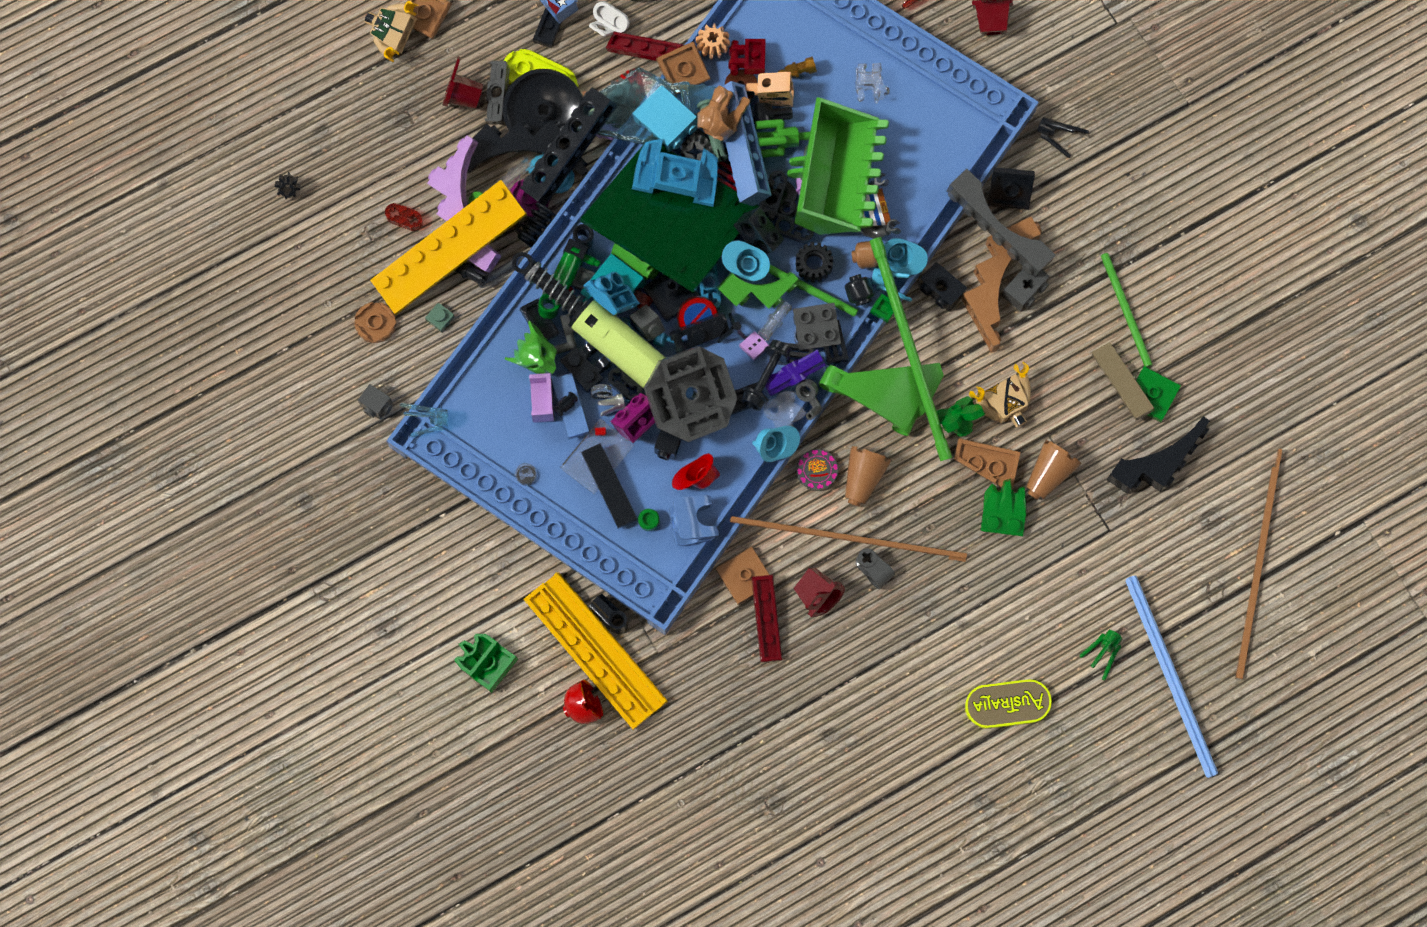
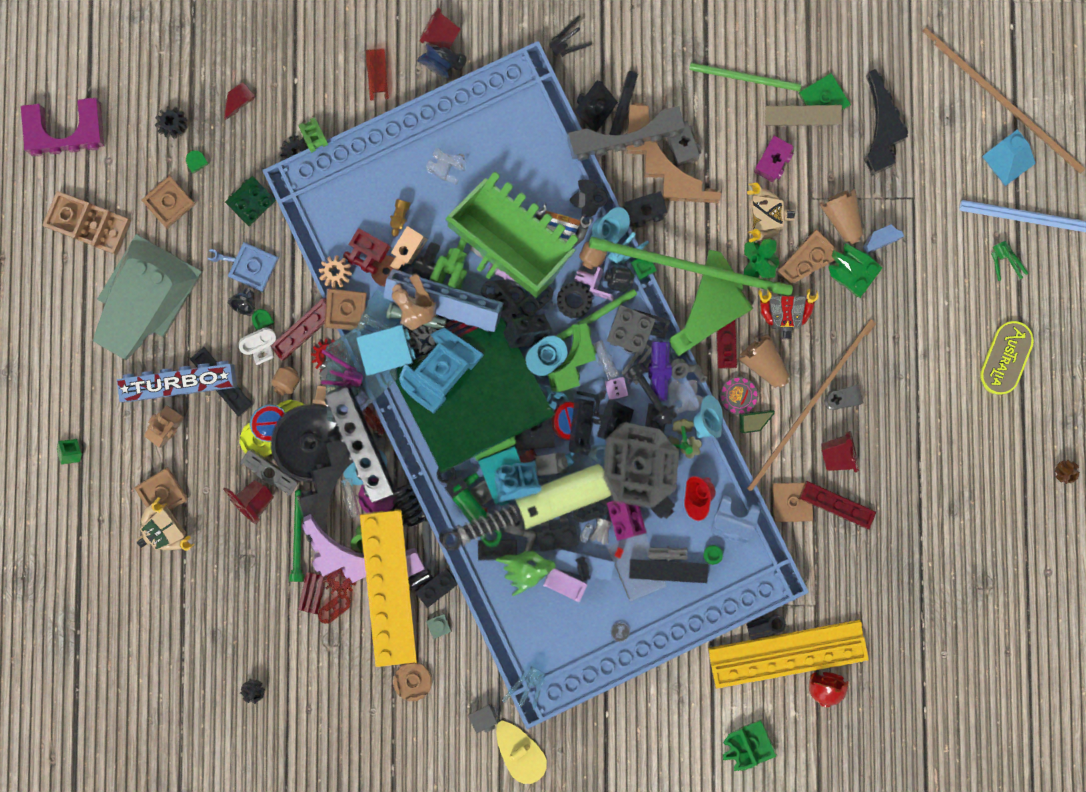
camera: 60 degrees left, 10 degrees up
(361, 456) = (520, 753): none -> light yellow shield
(407, 186) = (309, 591): none -> dark red tile
(416, 166) = (296, 574): none -> green piece
(425, 203) = (335, 584): none -> clear red gear
(472, 293) = (437, 588): none -> black brick
(541, 58) = (264, 420): none -> piece
(589, 60) = (285, 380): none -> medium nougat head
(597, 151) = (372, 420): none -> clear red gear
(624, 106) = (349, 376): none -> magenta plant
(625, 475) = (667, 553): none -> dark grey axle
(634, 11) = (261, 319): none -> green tile
(728, 349) = (613, 417): none -> black tile
(738, 440) = (689, 446): none -> olive plant
(801, 496) = (754, 421): none -> olive tile
(842, 269) = (593, 280): none -> lavender bracket
(860, 431) = (726, 347): none -> dark red plate
(917, 222) = (586, 198): none -> black plate
(924, 467) = (786, 311): none -> torso
(930, 822) = (1067, 471): none -> reddish brown gear
(967, 31) = (441, 60): none -> piece
(1036, 213) = (623, 103): none -> black axle
(1050, 518) = (882, 238): none -> medium blue slope
(1072, 371) = (779, 149): none -> magenta brick
(1206, 599) = (1010, 157): none -> dark azure slope

